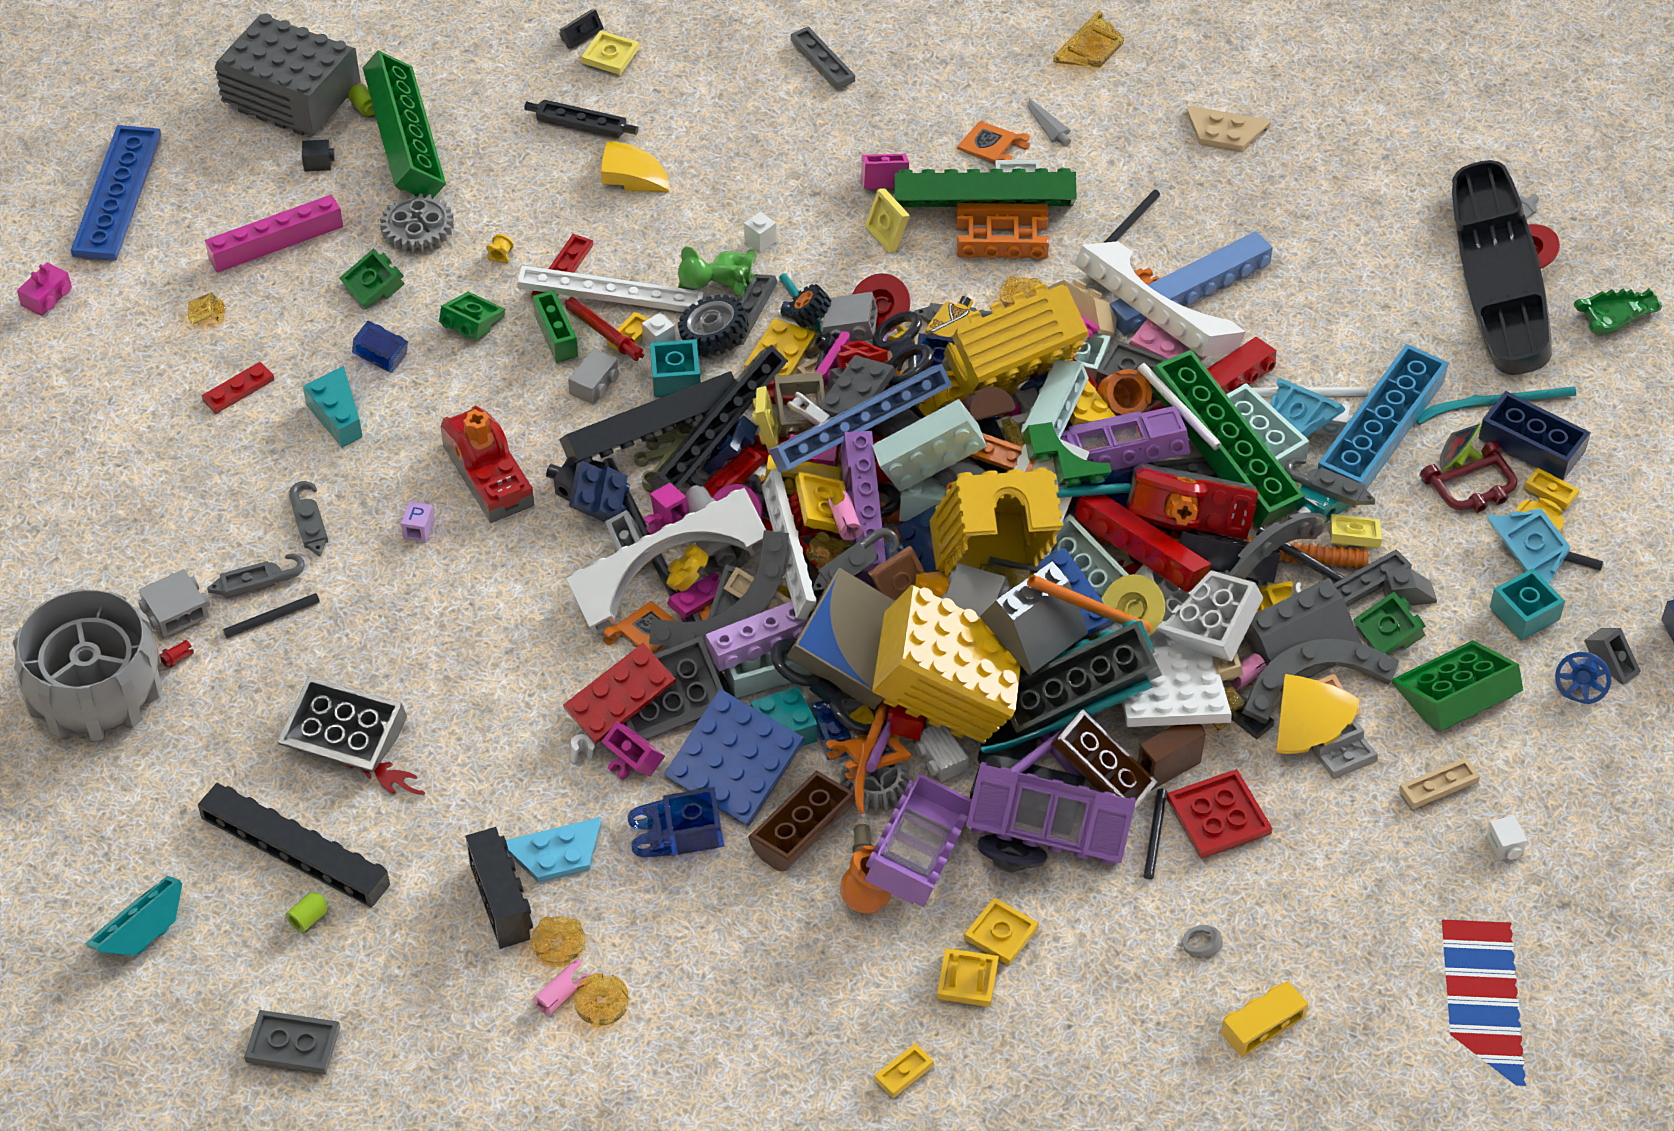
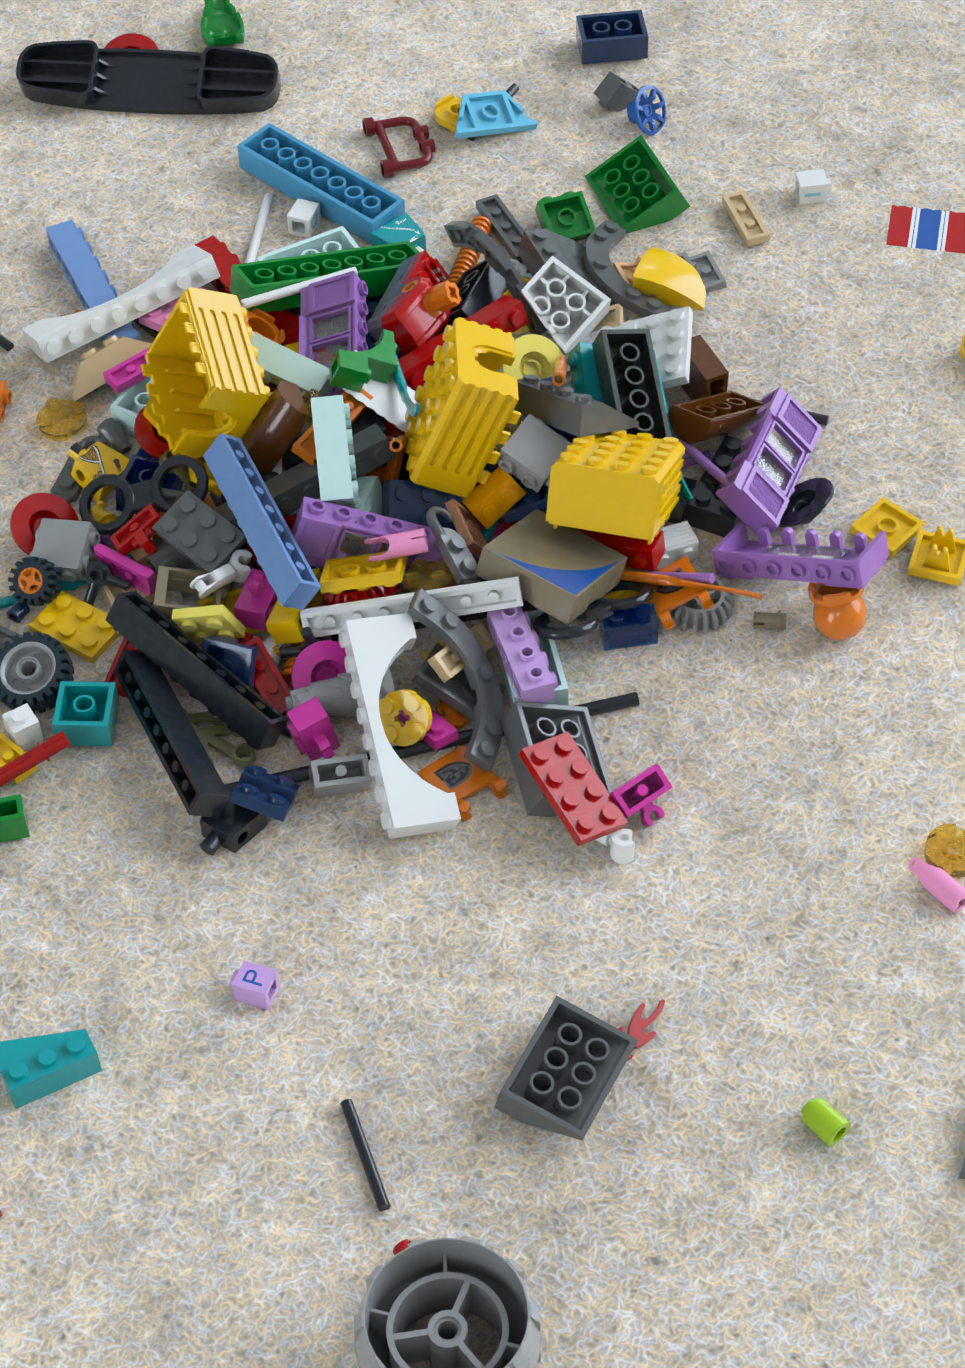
camera: 80 degrees left, 0 degrees up
(141, 921) = (828, 1302): teal wedge -> none
(173, 603) = (333, 1257): light grey brick -> none
(254, 577) = (304, 1167): dark grey plate -> none
(294, 844) = (725, 1134): black brick -> none
(308, 518) = (216, 1108): dark grey plate -> none
(485, 463) = (180, 907): red piece -> none
(499, 887) = (817, 923): black brick -> none
(551, 928) = (877, 871): clear yellow plate -> none
(557, 850) = (754, 880): medium azure wing -> none
(593, 376) = (70, 796): light grey brick -> none
(678, 824) = (740, 757): clear blue brick -> none
(737, 754) = (661, 704): blue plate -> none
(790, 710) = (613, 664): teal brick -> none
(800, 821) = (750, 657): reddish brown brick -> none
(1210, 947) = (904, 381): light grey piece -> none
(1219, 813) = (763, 361): red plate -> none
(1303, 407) = (292, 226): medium azure wing -> none
(1308, 560) = (467, 263): black bar -> none
(1331, 484) = (399, 221): dark grey plate -> none
(1355, 531) = (460, 211): light yellow plate -> none
(1410, 585) = (523, 204): dark grey slope -> none
(1459, 448) = (363, 141): shield -> none
(1478, 400) = (301, 127): teal piece -> none
(1527, 604) = (560, 129): teal brick -> none
(1534, 435) = (363, 93): dark blue brick -> none
(1551, 488) = (422, 98): yellow plate -> none

